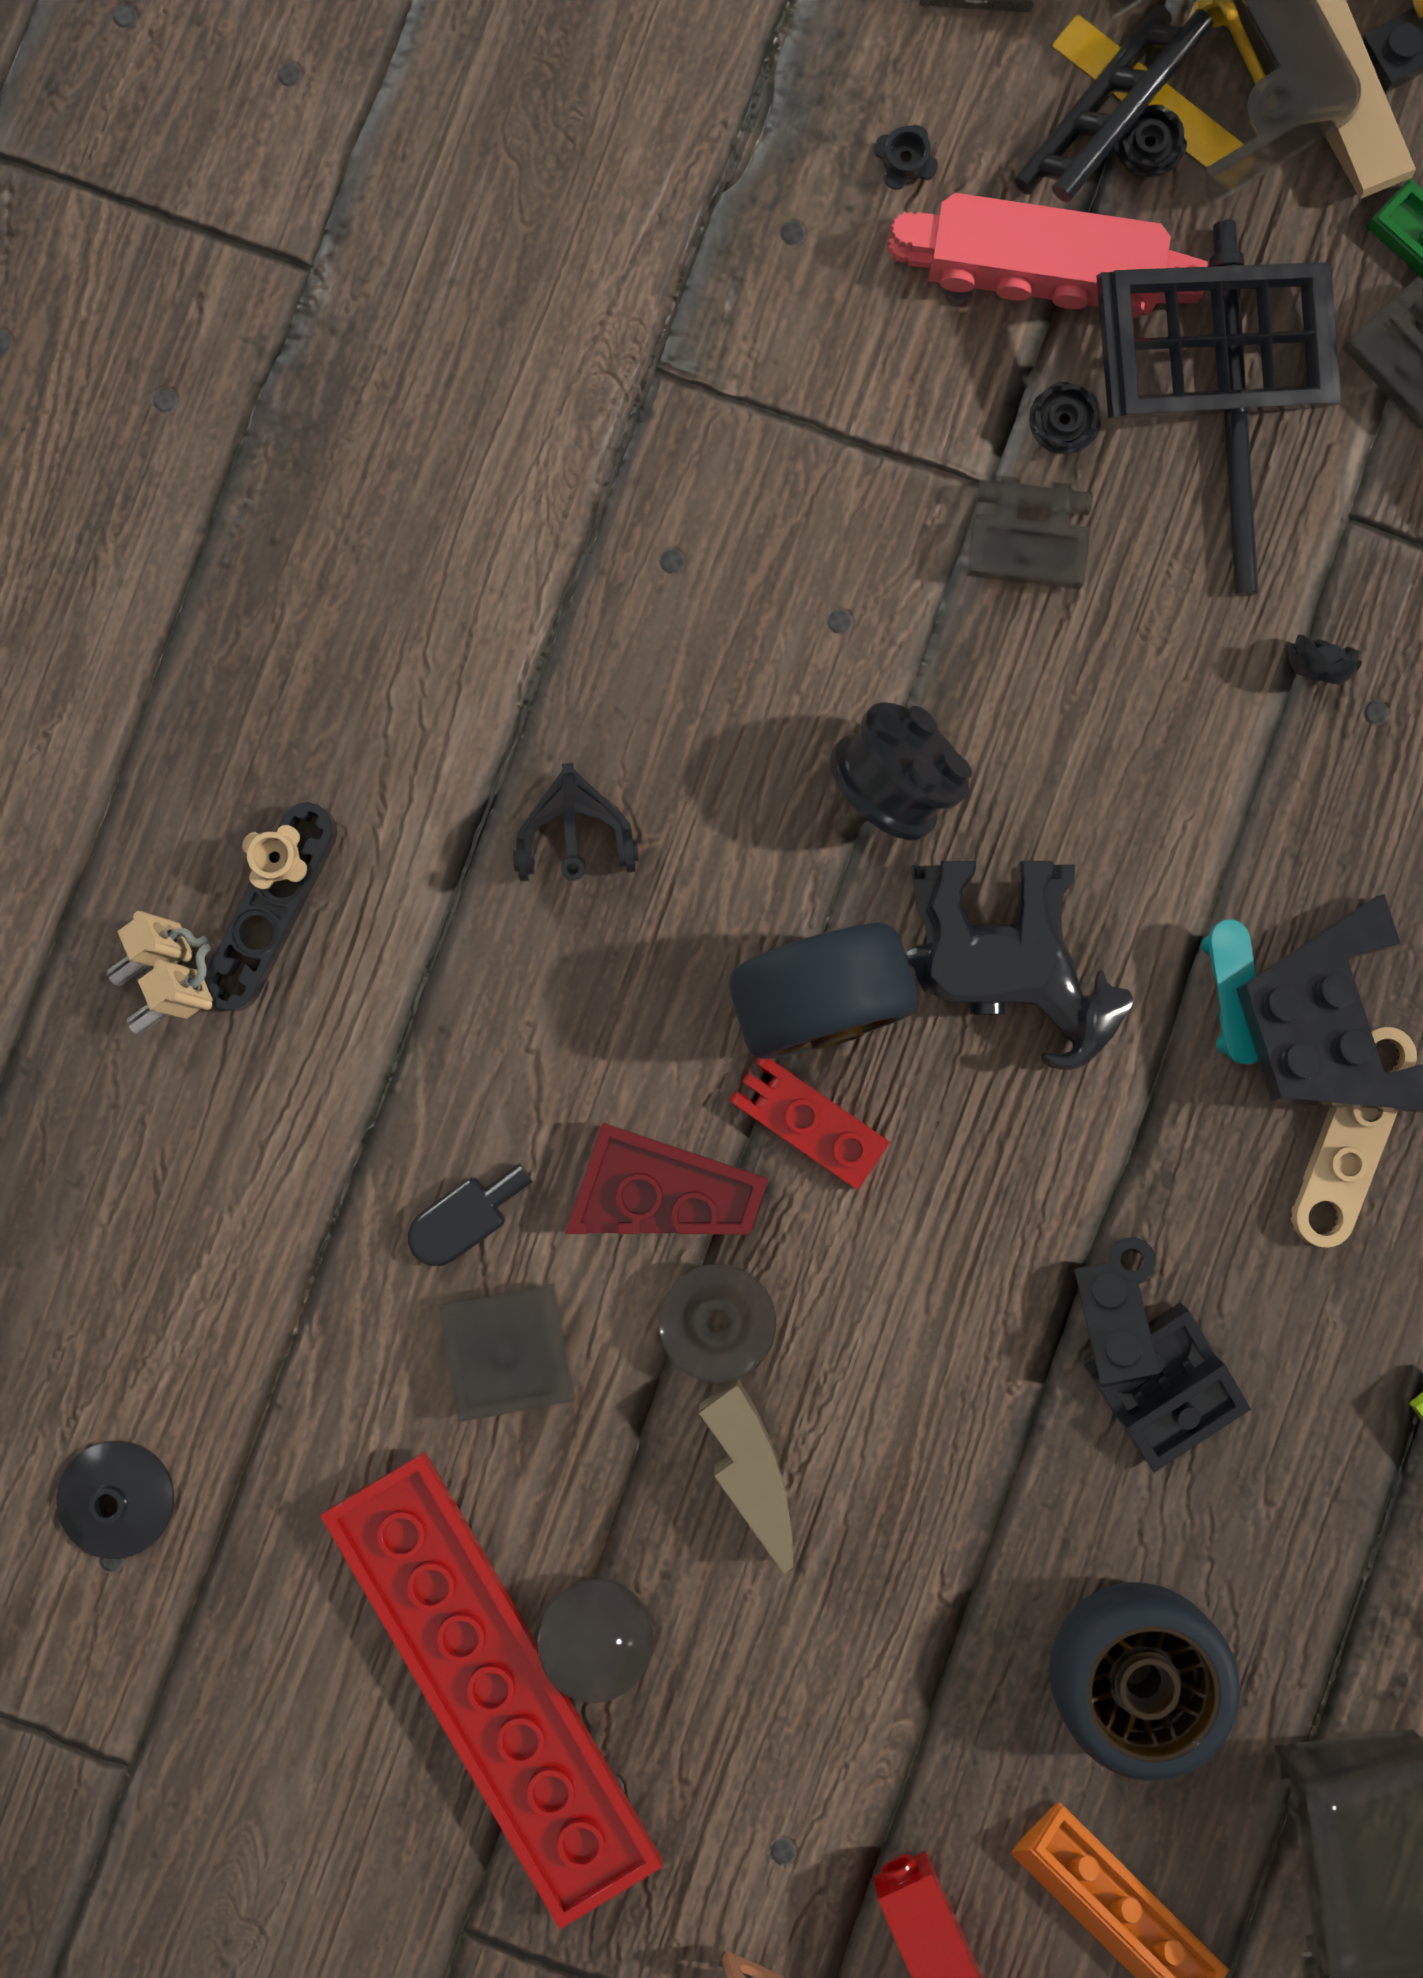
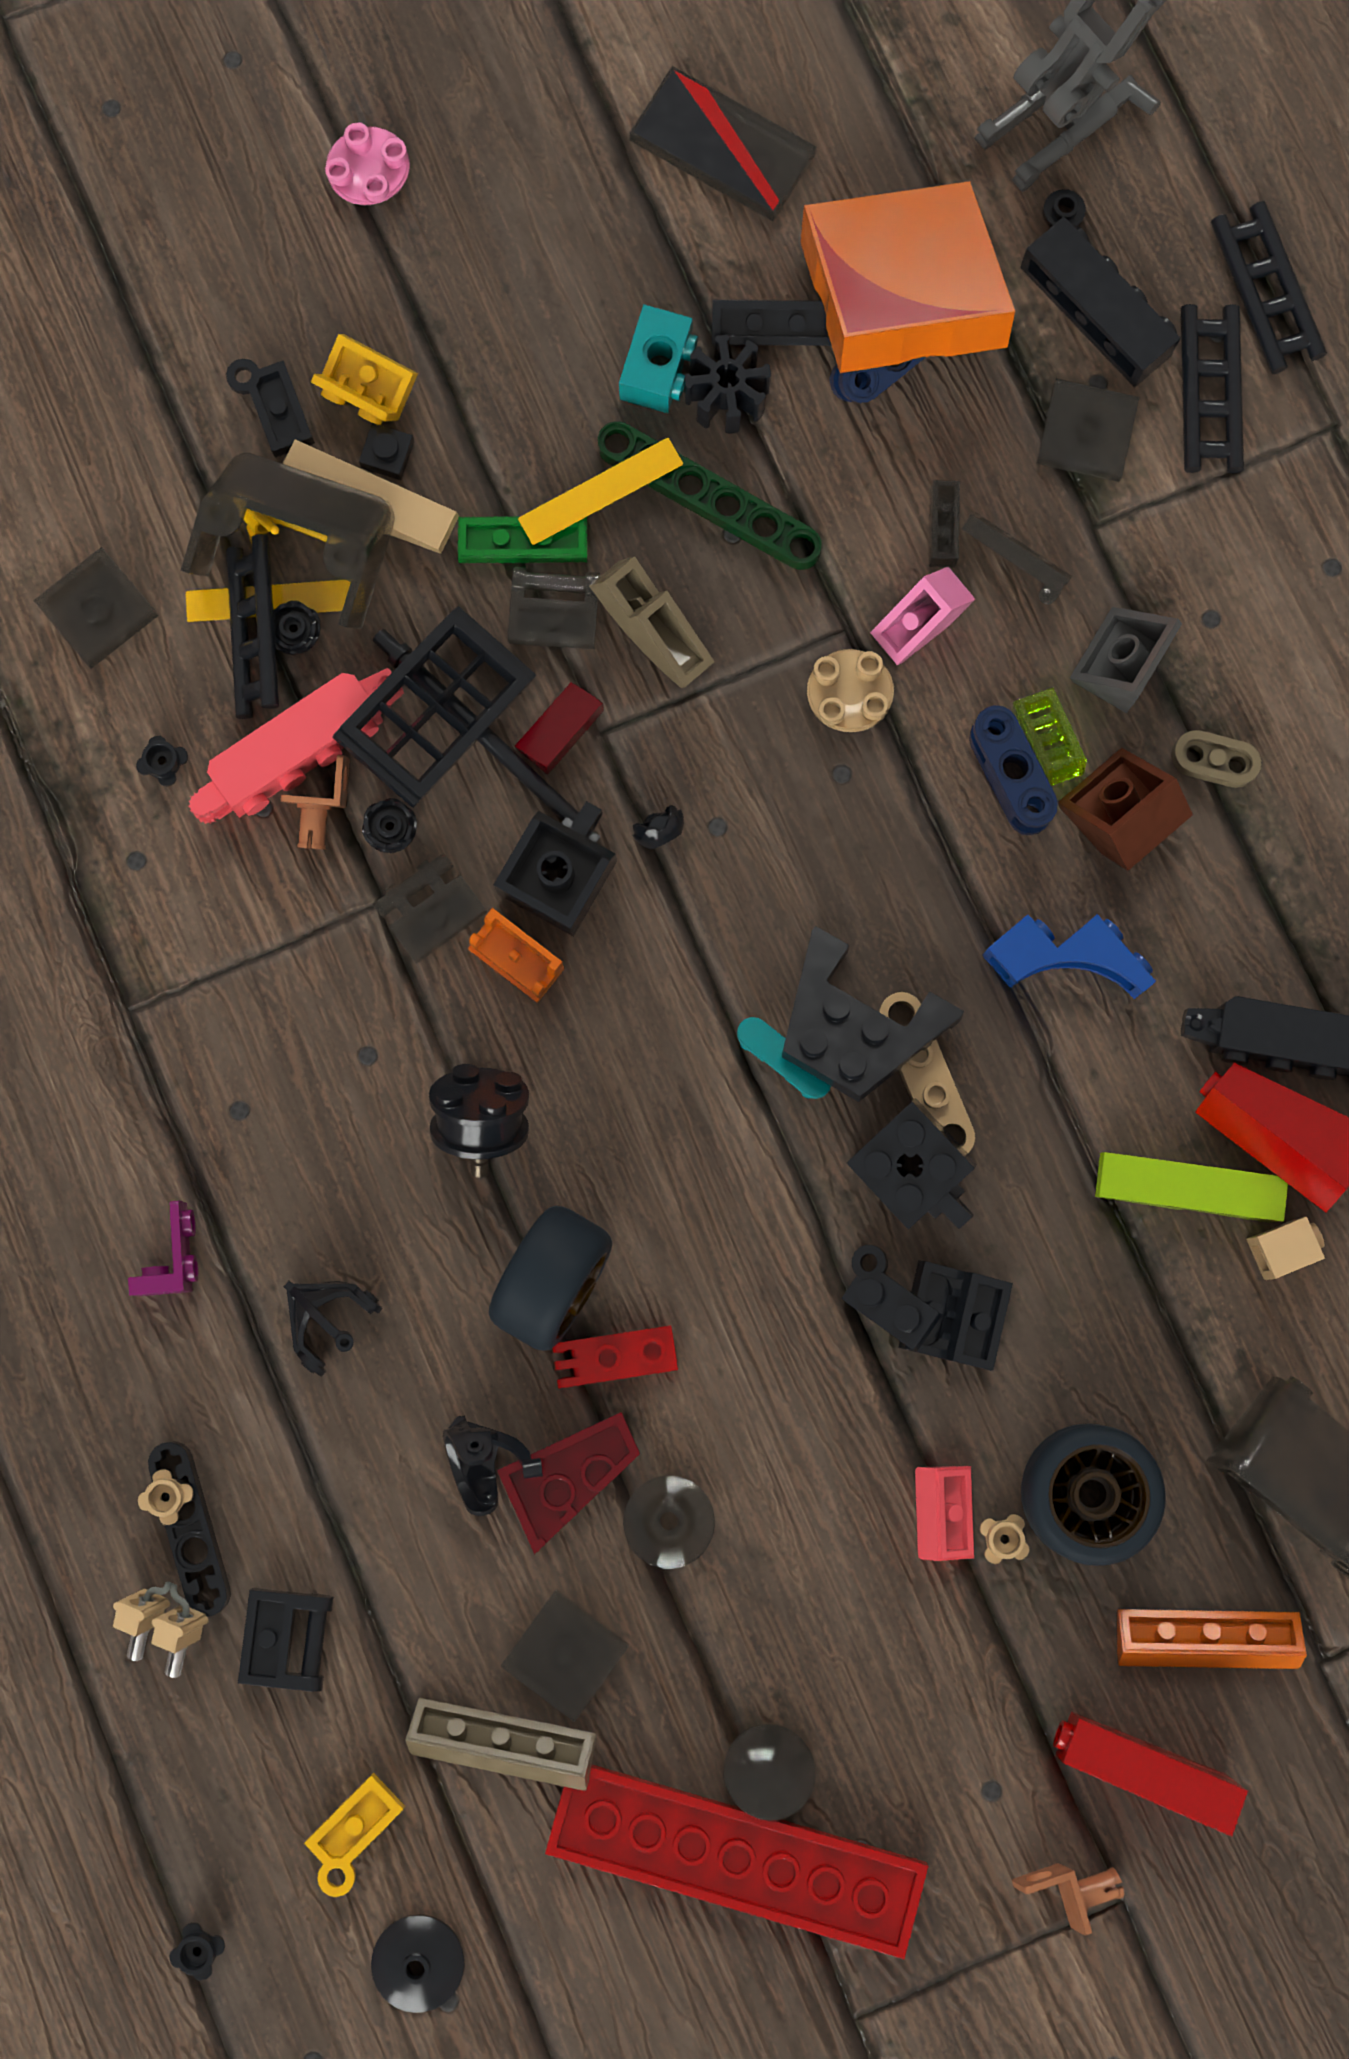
camera: 45 degrees left, 5 degrees down
(164, 1325) = (351, 1831): none -> yellow hinge
(250, 1079) = (270, 1635): none -> black plate
(374, 1378) = (501, 1743): none -> dark tan slope
(452, 647) = (157, 1279): none -> magenta bracket
(463, 1218) = (468, 1602): black piece -> none
(589, 1090) = (472, 1458): none -> black helmet
(750, 1469) = (768, 1587): dark tan slope -> none
(981, 1558) = (944, 1513): none -> coral slope
(1013, 335) = (315, 809): none -> nougat bracket
(1013, 962) = (644, 1159): black animal -> none
(1021, 1653) = (1013, 1548): none -> tan plate
(1070, 654) = (515, 956): none -> orange hinge
(1197, 577) = (547, 846): none -> black hinge
(1276, 1249) = (914, 1193): none -> black hinge
(1316, 475) = (560, 727): none -> dark red slope

